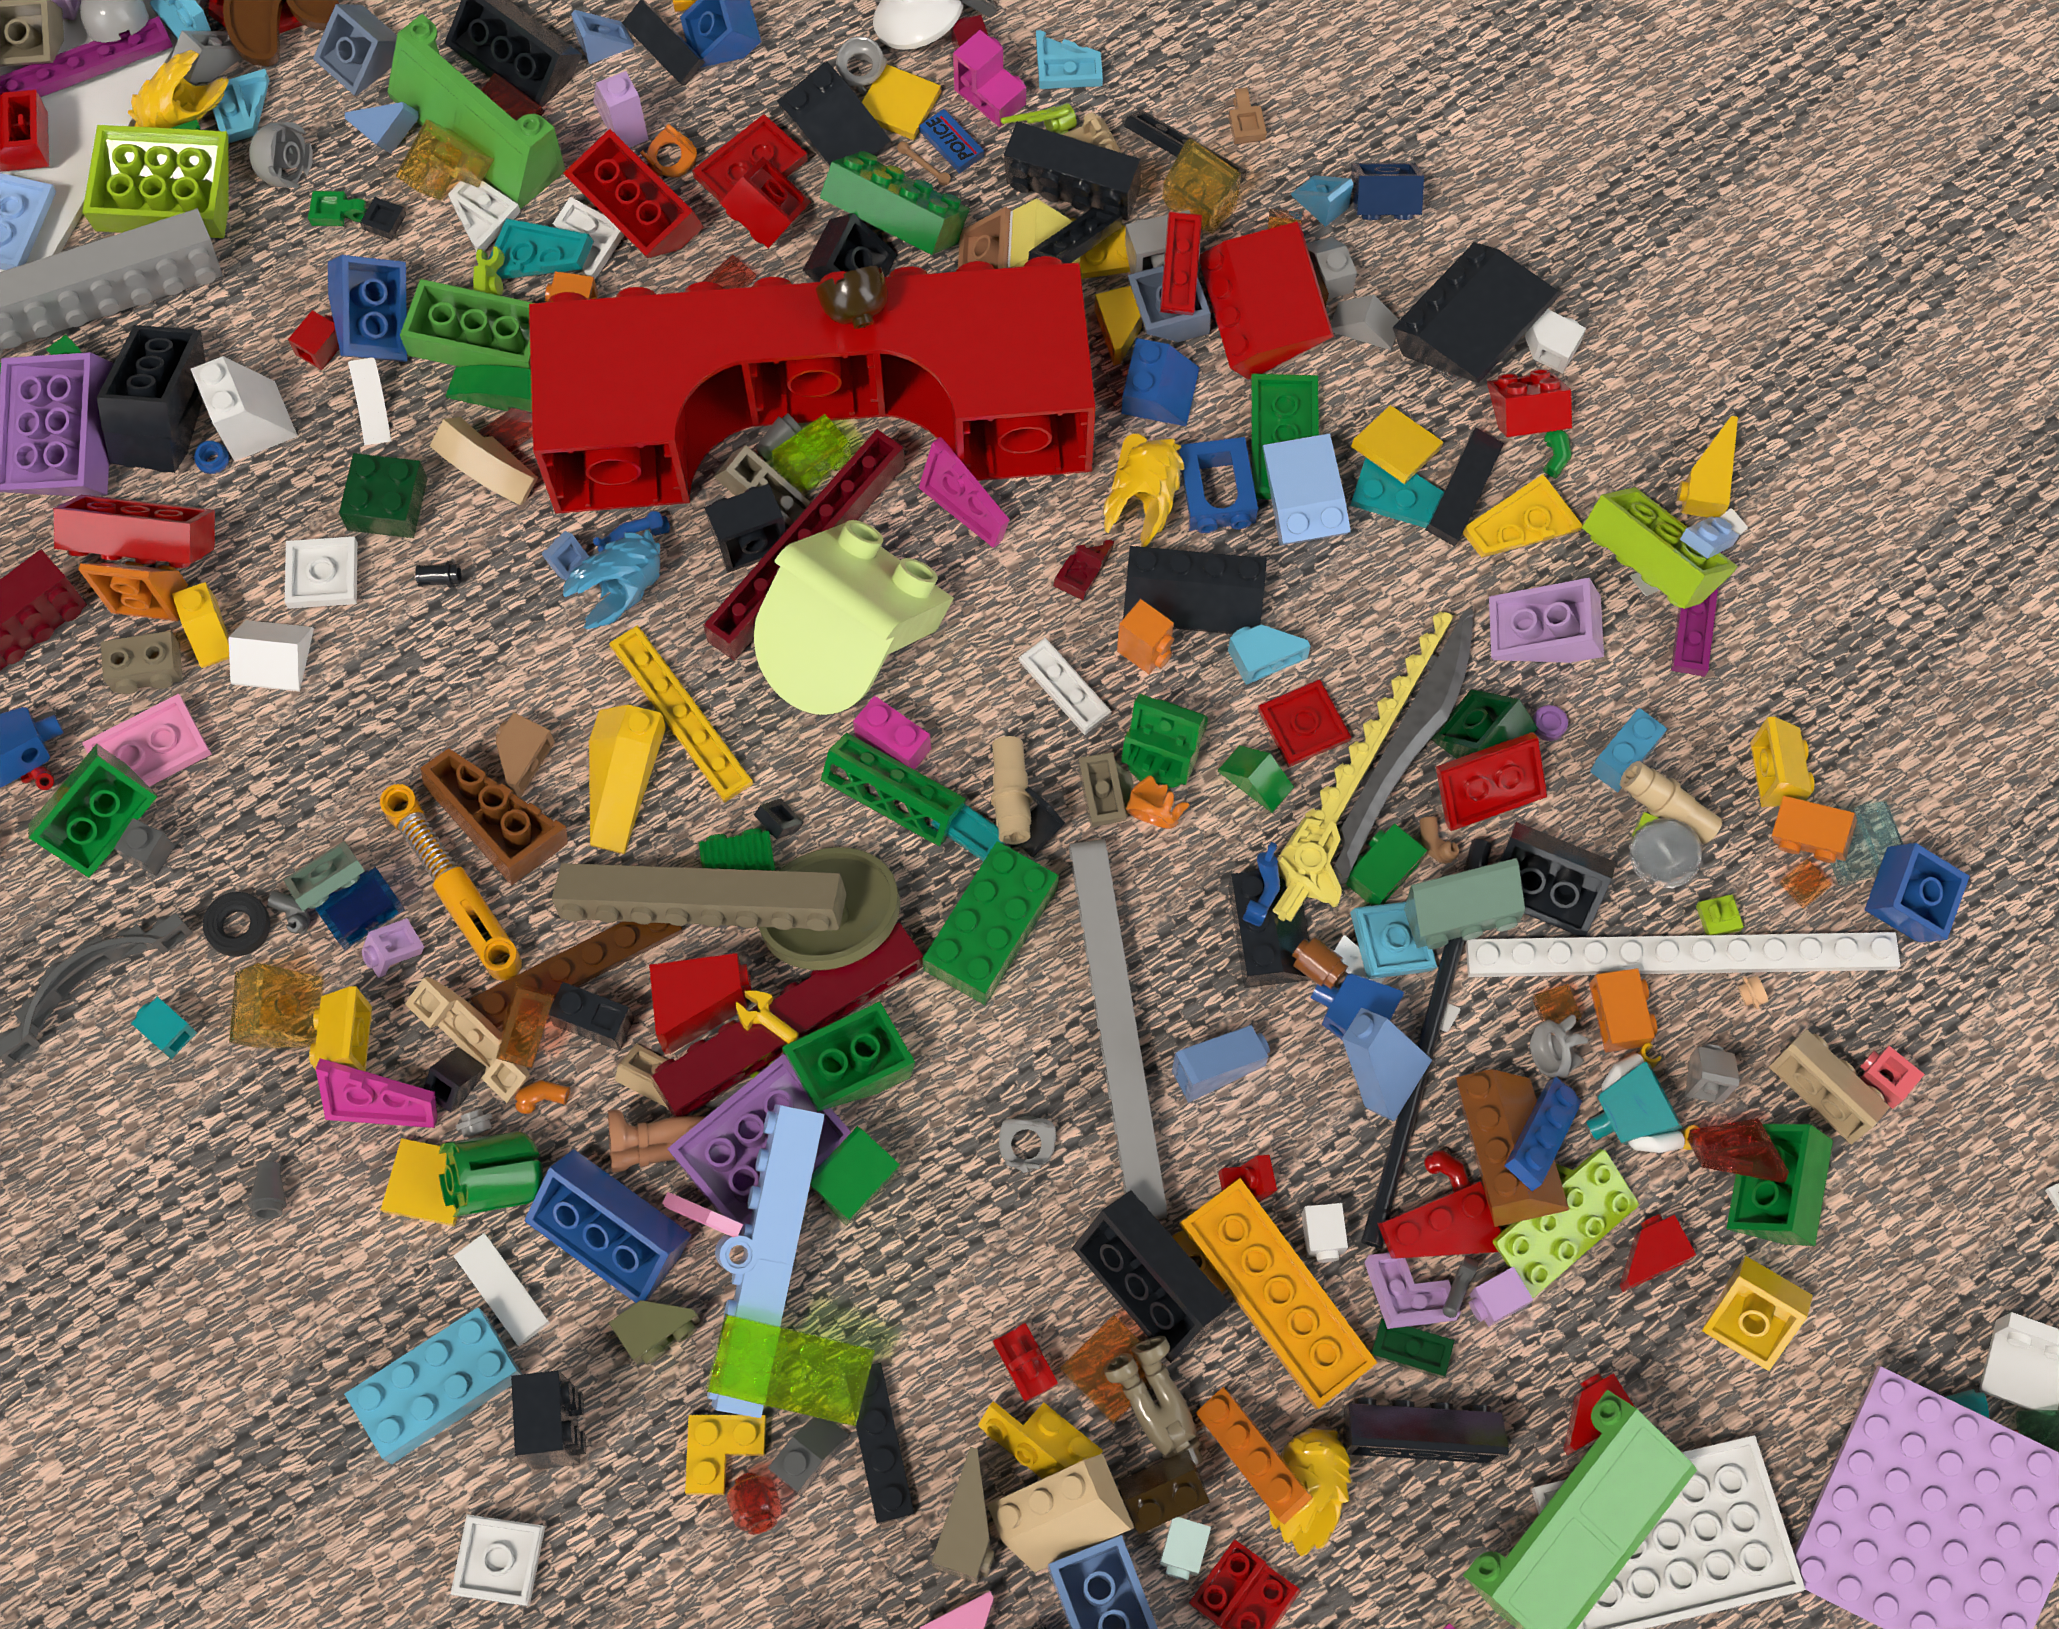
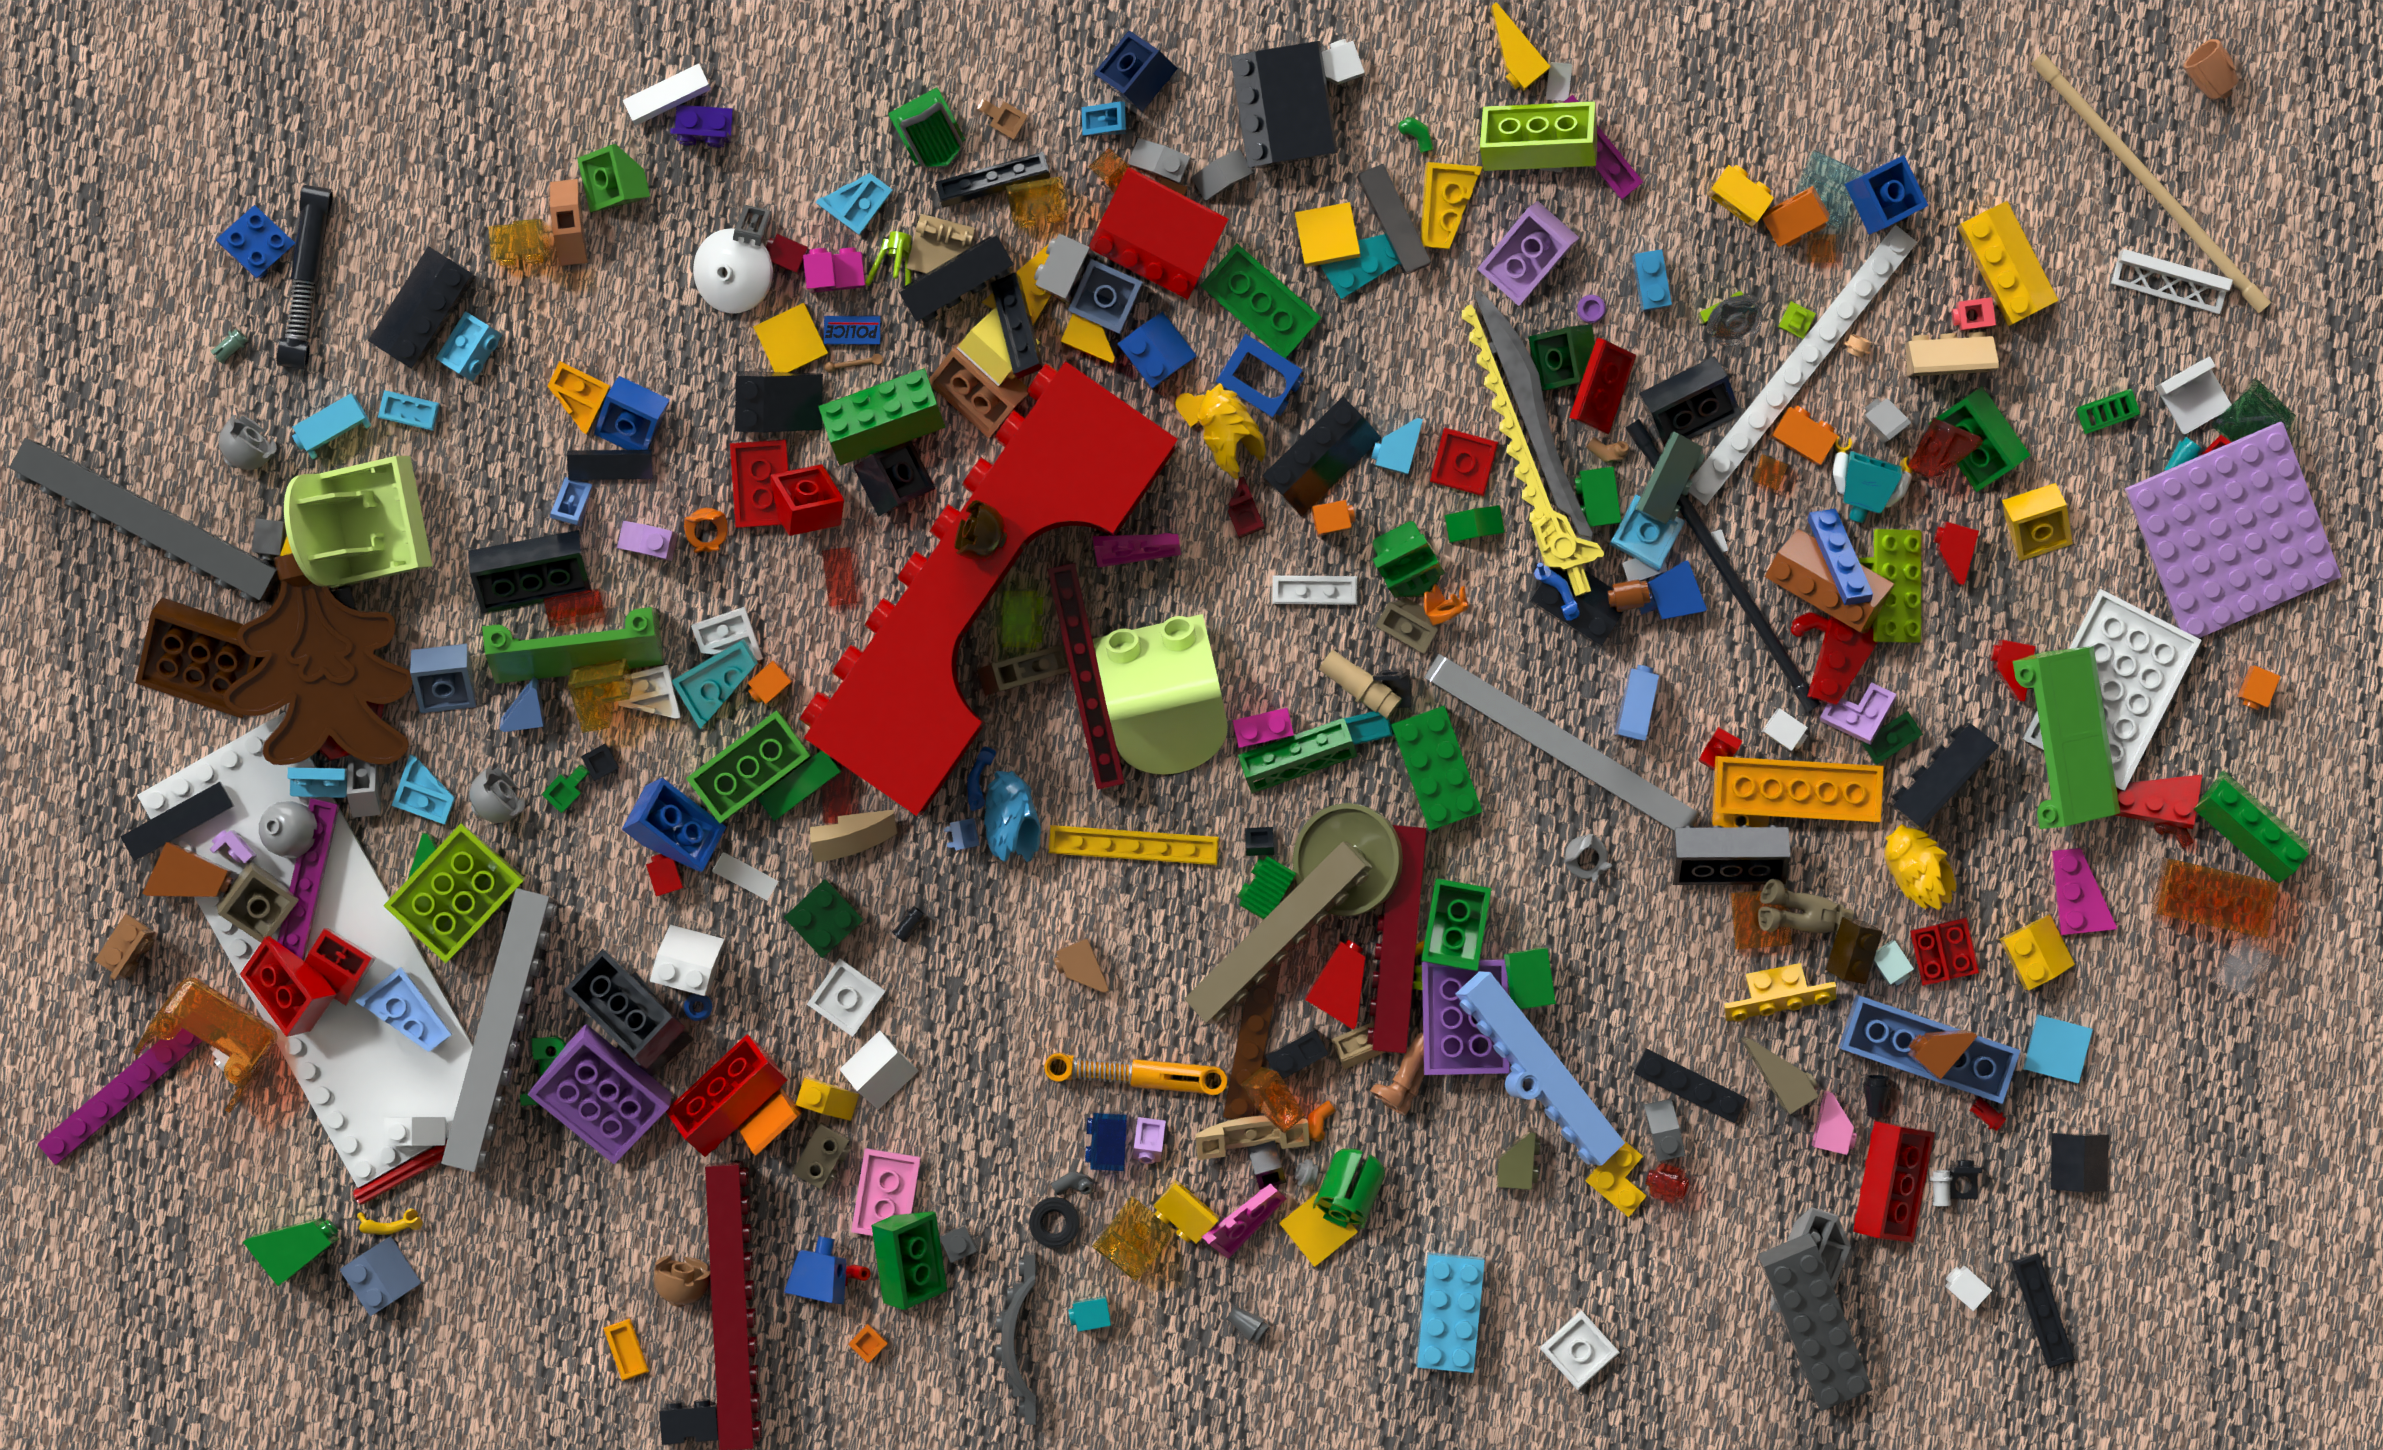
camera: 50 degrees left, 20 degrees up
(172, 100) = (395, 834): yellow head -> none
(323, 876) = (1071, 1148): sand green plate -> none
(485, 274) = (712, 730): lime plate -> none
(500, 824) = (1116, 1016): dark orange wedge -> none
(501, 1289) = (1420, 1232): white tile -> none
(547, 1420) = (1530, 1265): black brick -> none
(606, 1226) = (1436, 1143): blue slope -> none
(620, 767) = (1140, 911): yellow wedge -> none
(633, 197) = (728, 586): red slope -> none
(702, 1215) = (1482, 1085): bright pink tile -> none
(745, 526) = (1045, 705): black slope -> none
(764, 1016) = (1392, 954): yellow bar -> none
(778, 433) = (989, 628): dark grey cone -> none
(790, 1370) = (1615, 1106): clear neon green plate -> none
(862, 49) = (728, 340): light grey piece -> none
(1025, 1363) = (1716, 967): red hips -> none
(1062, 1514) = (1818, 1018): tan slope -> none
(1180, 65) = (928, 130): none -> green piece
(1180, 263) = (1096, 275): red tile -> none
(1254, 1455) = (1877, 884): orange plate -> none
(1306, 490) = (1316, 328): light blue slope -> none
(1383, 1063) = (1721, 611): medium blue slope -> none
(1459, 1286) = (1878, 676): dark grey bar -> none
(1499, 1297) = (1906, 663): lavender brick -> none
(1531, 403) = (1371, 121): red slope -> none
(1555, 1053) = (1794, 497): light grey piece -> none
(1668, 800) = (1705, 291): tan piece -> none
(1710, 536) = (1561, 100): light blue plate -> none
(1935, 1310) = (2131, 404): none -> green slope
(1965, 1067) = (2007, 263): none -> yellow slope

